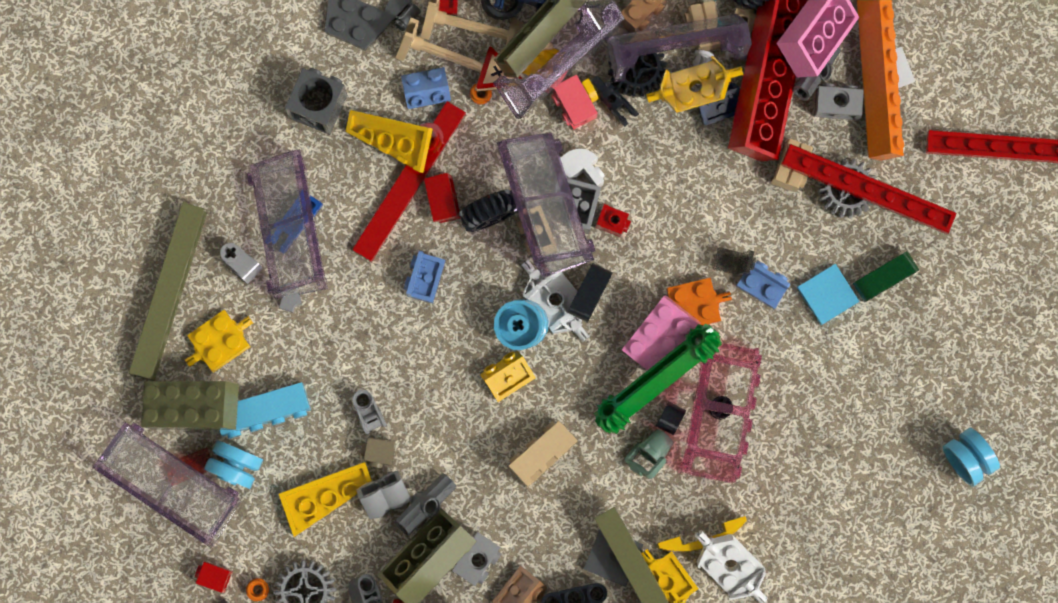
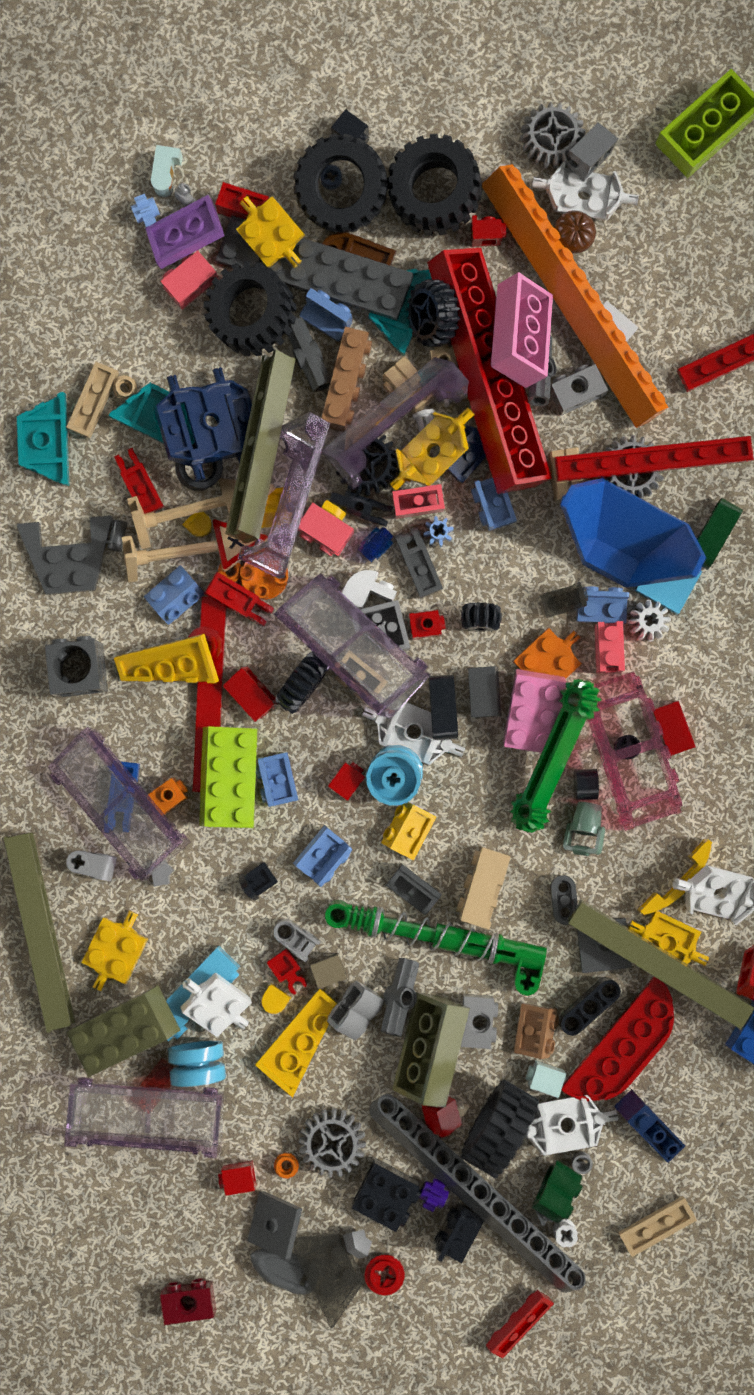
camera: 20 degrees left, 5 degrees up
(275, 426) = (215, 1004): none -> white plate
(323, 451) = (274, 999): none -> yellow tile
(333, 241) = (169, 794): none -> orange brick
(347, 429) = (285, 967): none -> red plate
(364, 349) = (257, 881): none -> black tile
(387, 252) = (228, 777): none -> lime brick
(427, 358) = (323, 856): none -> medium blue bracket
(474, 117) = (237, 598): none -> red hinge
(476, 43) = (198, 524): none -> yellow tile
(480, 309) = (347, 780): none -> red brick
(484, 425) = (413, 889): none -> dark grey hinge
(489, 478) = (449, 939): none -> green piece
(500, 116) = (262, 583): none -> orange dish
(600, 501) = (563, 899): none -> dark grey plate
(609, 135) = (376, 543): none -> clear blue brick
(630, 300) = (484, 692): none -> dark grey hinge
(634, 170) = (419, 563): none -> dark grey plate
(660, 238) = (481, 617): none -> black gear
(661, 120) = (418, 501): none -> coral brick
(662, 159) = (440, 538): none -> light blue gear
(721, 159) = (495, 507): none -> medium blue bracket
(750, 320) = (609, 647): none -> coral brick
(767, 413) = (674, 728): none -> red hinge
(794, 308) = (644, 612): none -> white gear
(812, 236) = (629, 536): none -> blue piece

